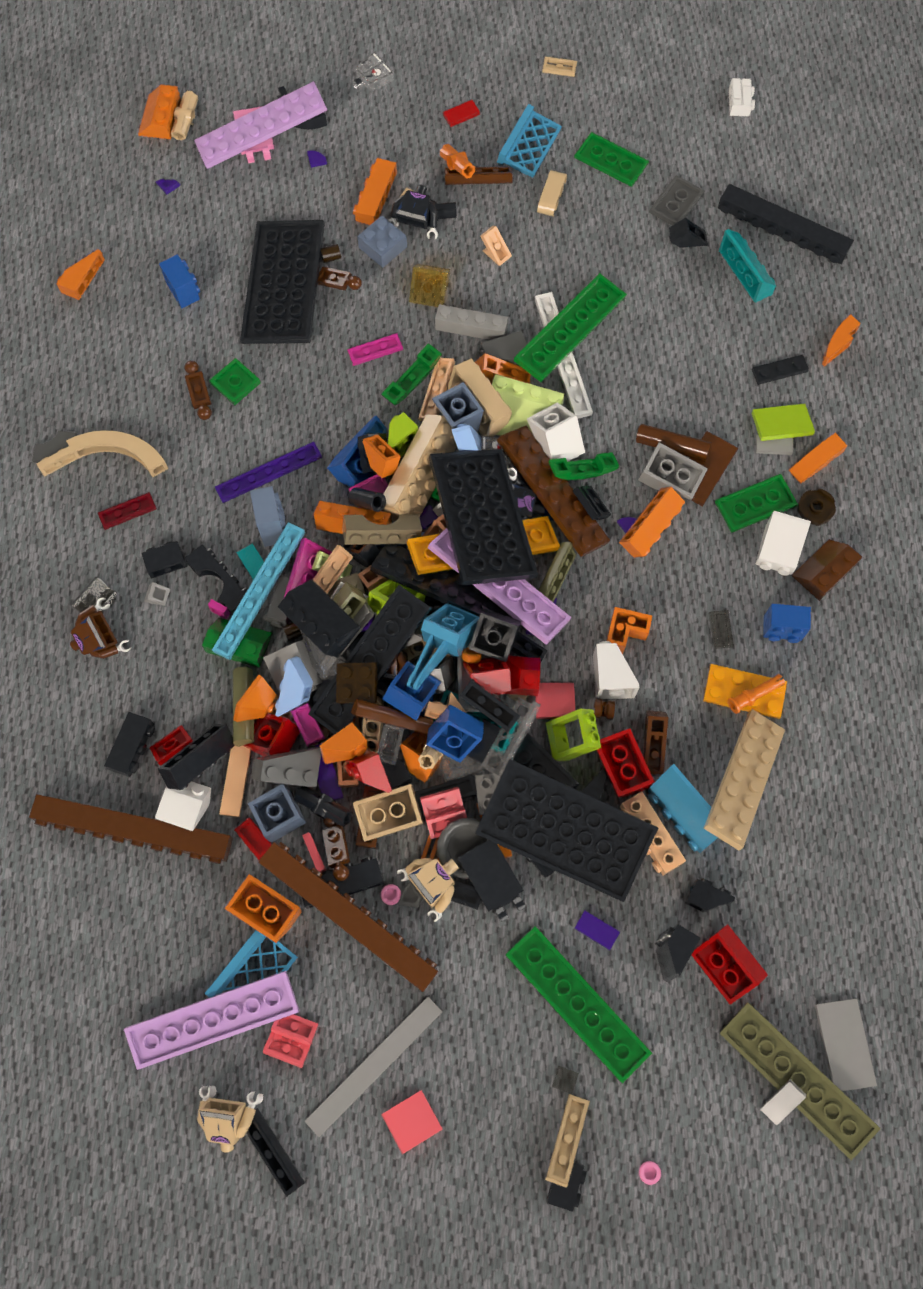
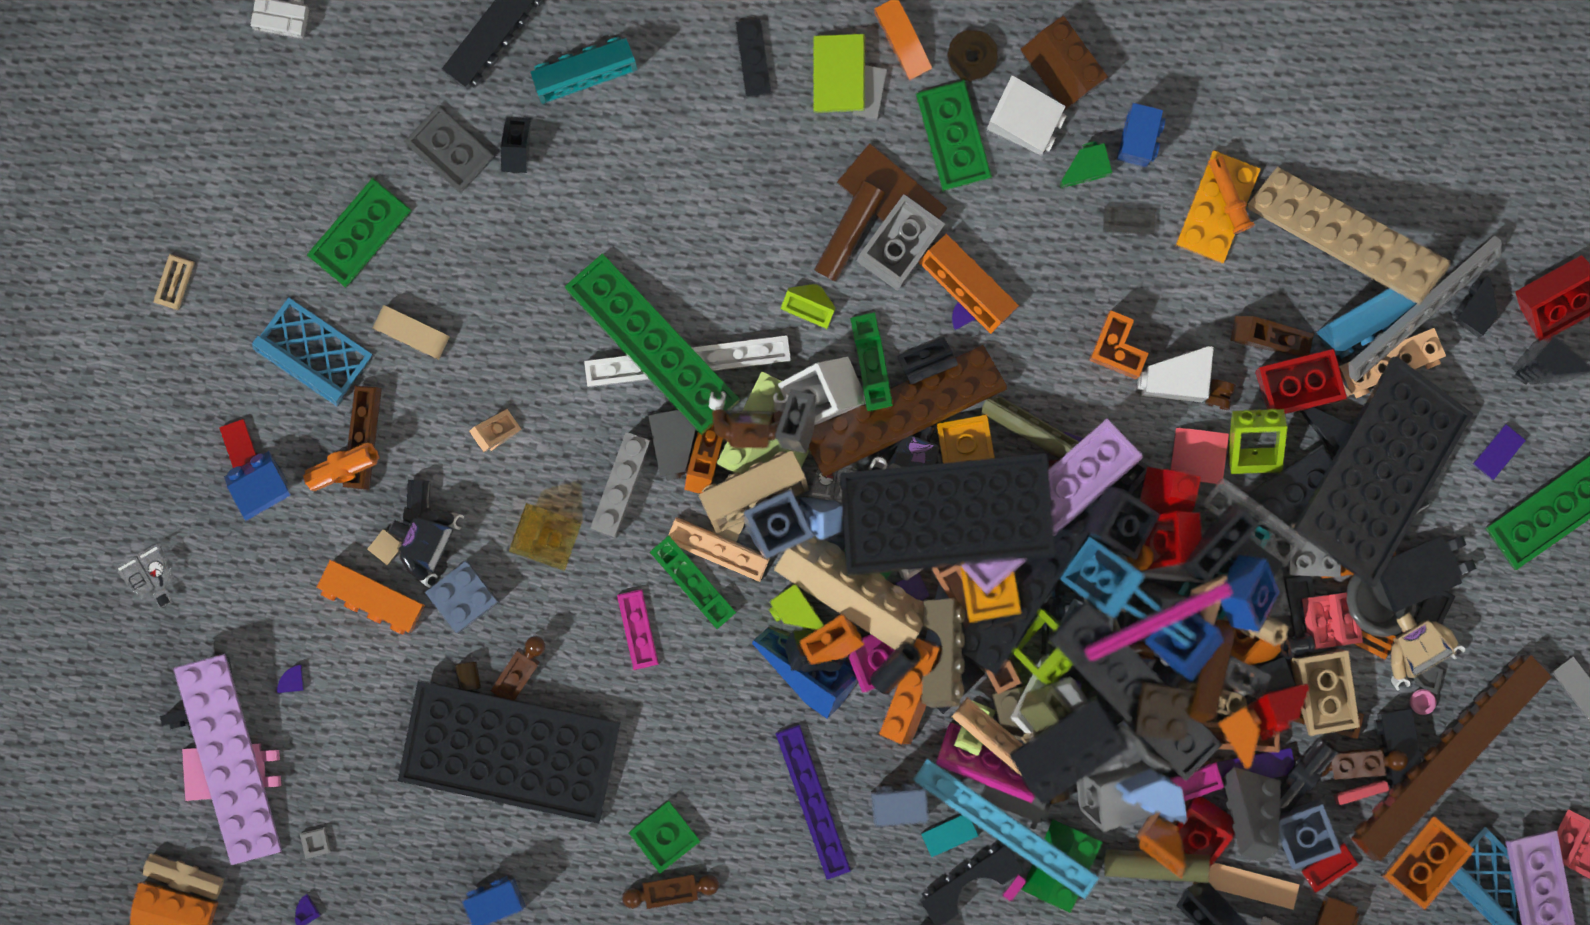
camera: 85 degrees left, 15 degrees up
(212, 184) = (315, 843): none -> light grey tile
(320, 679) = (1149, 758): none -> dark grey animal
(421, 785) = (1297, 645): none -> black bush
(423, 658) = (1158, 621): none -> dark pink axle
(438, 117) = (257, 485): none -> blue slope
(523, 382) = (746, 428): none -> reddish brown torso
(531, 410) = (797, 422): none -> dark grey slope
(617, 424) = (809, 303): none -> lime slope
(700, 851) = (1420, 313): none -> light grey tile
(754, 592) = (1088, 165): none -> green slope

